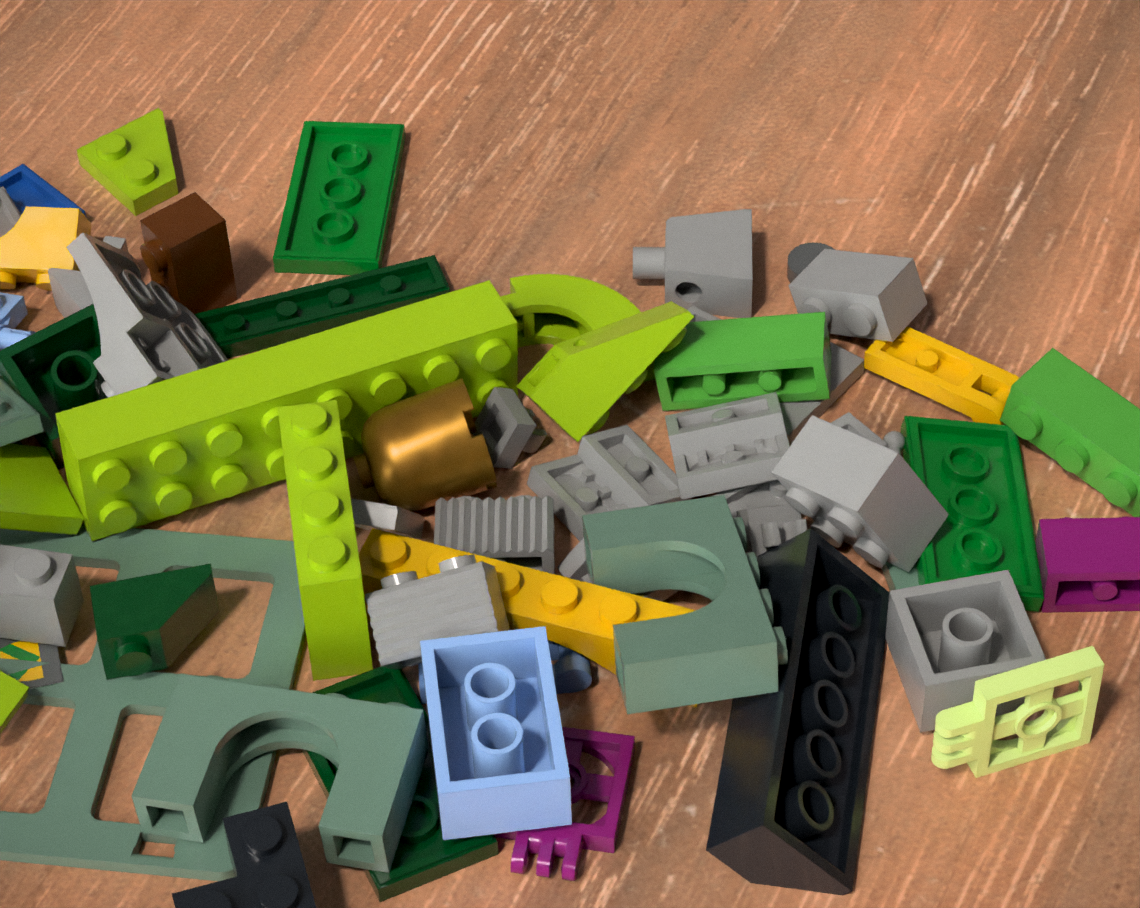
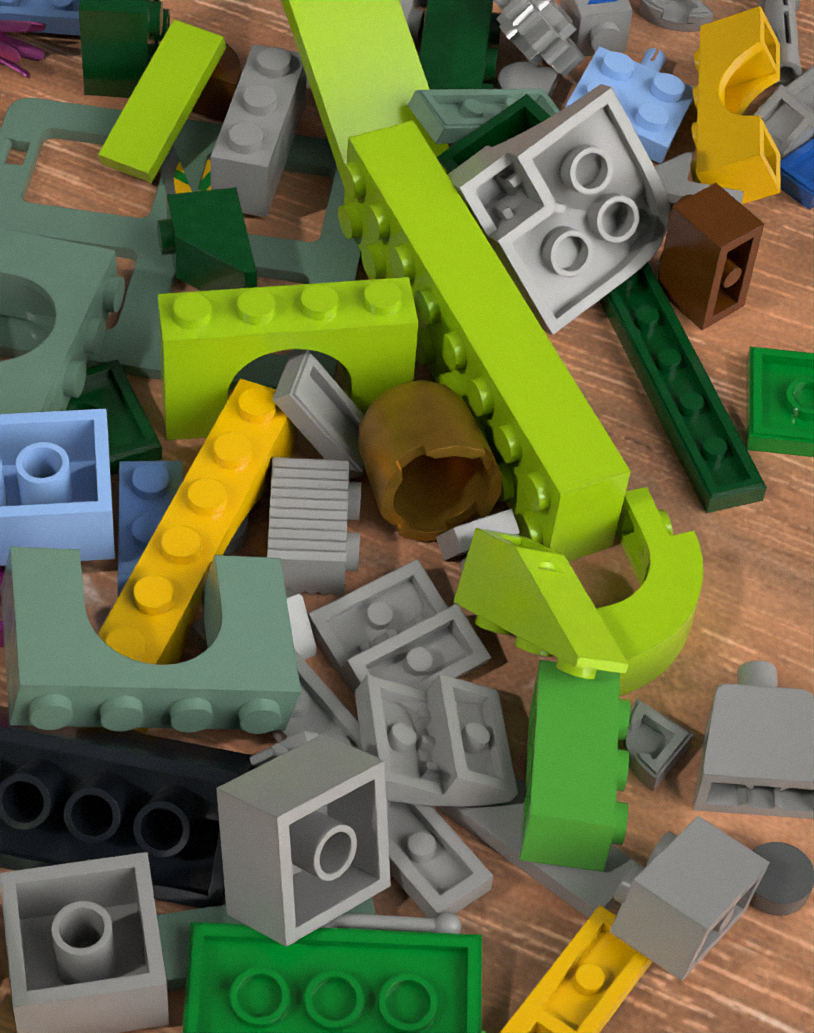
camera: 85 degrees right, 5 degrees up
(449, 604) = (160, 438): light grey brick -> none

